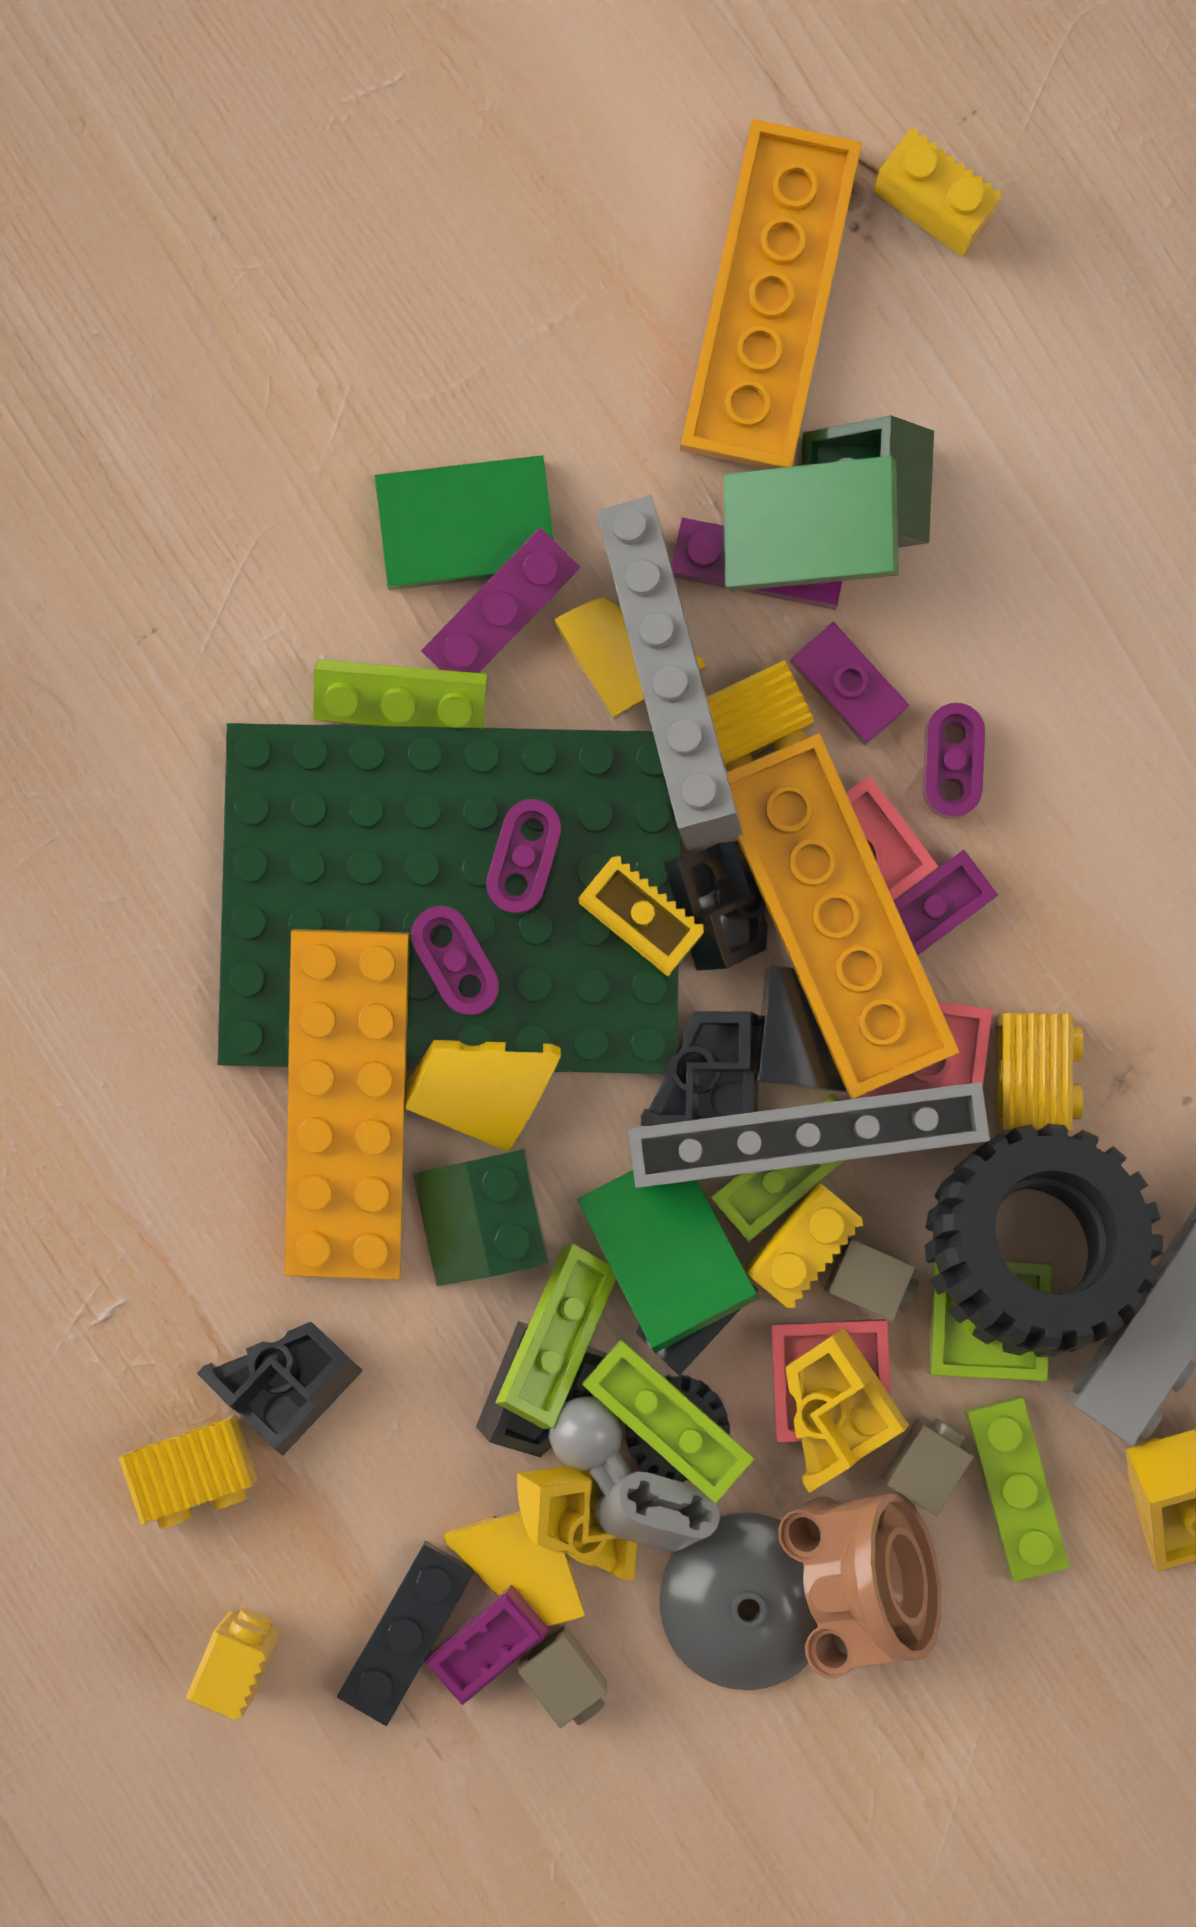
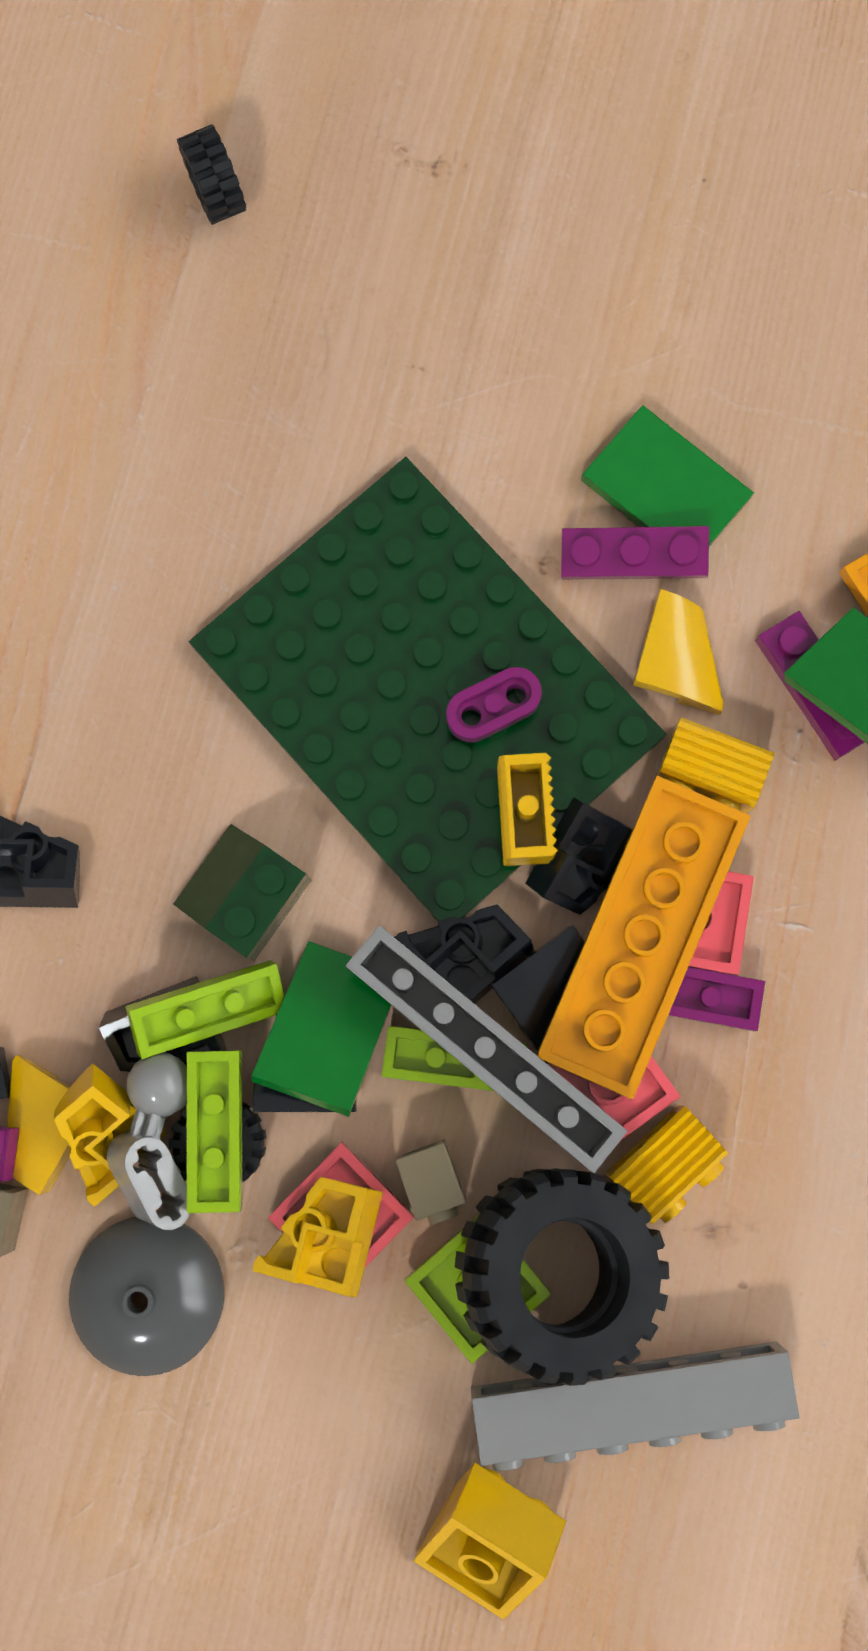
camera: 50 degrees right, 5 degrees down
(346, 1104) = (235, 740): light orange plate -> none
(398, 695) = (521, 541): lime plate -> none
(456, 961) = (387, 724): magenta plate -> none
(480, 1088) = (322, 814): yellow slope -> none
(669, 673) = (694, 687): light grey brick -> none
(803, 1245) = (411, 1115): yellow brick -> none
(849, 683) = (798, 811): magenta plate -> none
(865, 1581) = (226, 1365): nougat piece -> none
(928, 1465) = (343, 1335): dark tan brick -> none
(954, 762) = (813, 923): magenta plate -> none
(1017, 1488) = (382, 1411): lime plate -> none

